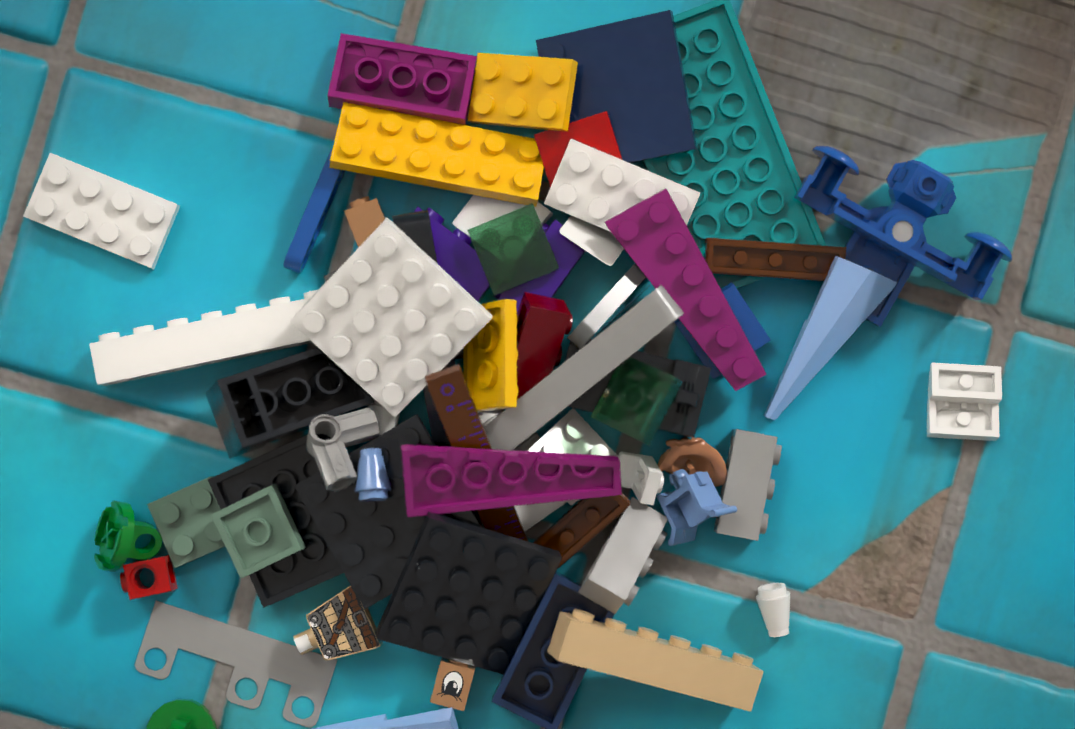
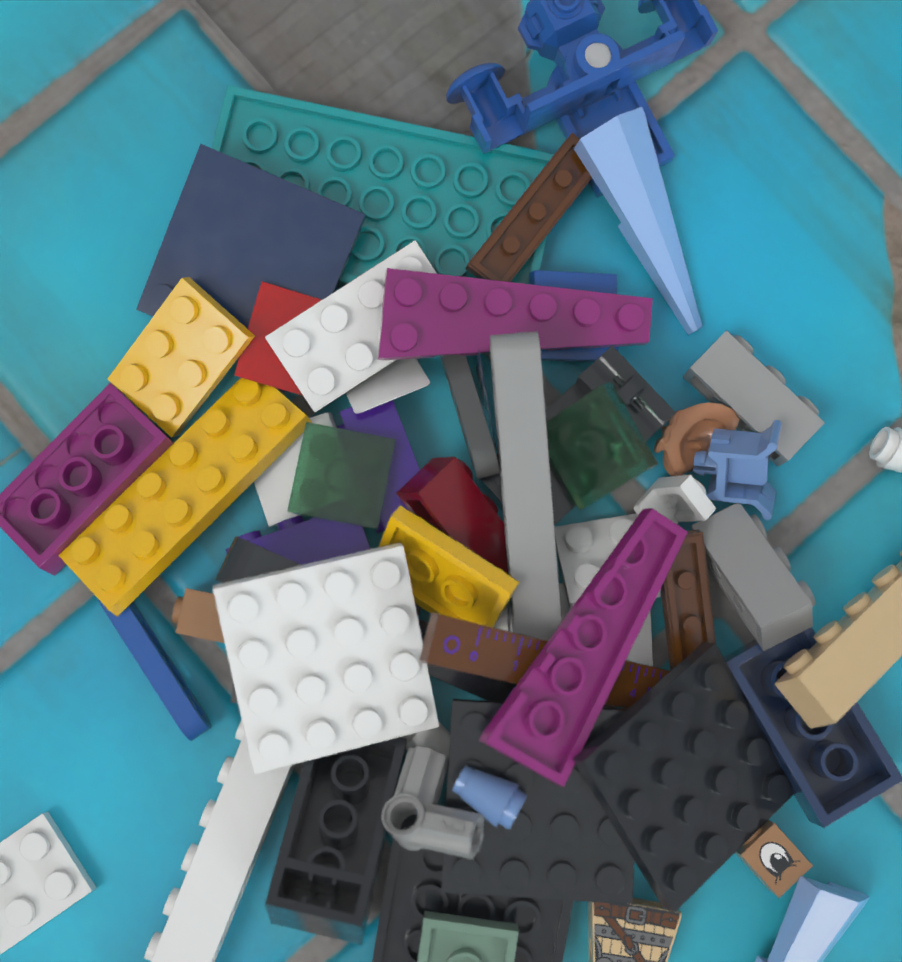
camera: 60 degrees left, 5 degrees down
(964, 401) = (806, 124): white slope -> none

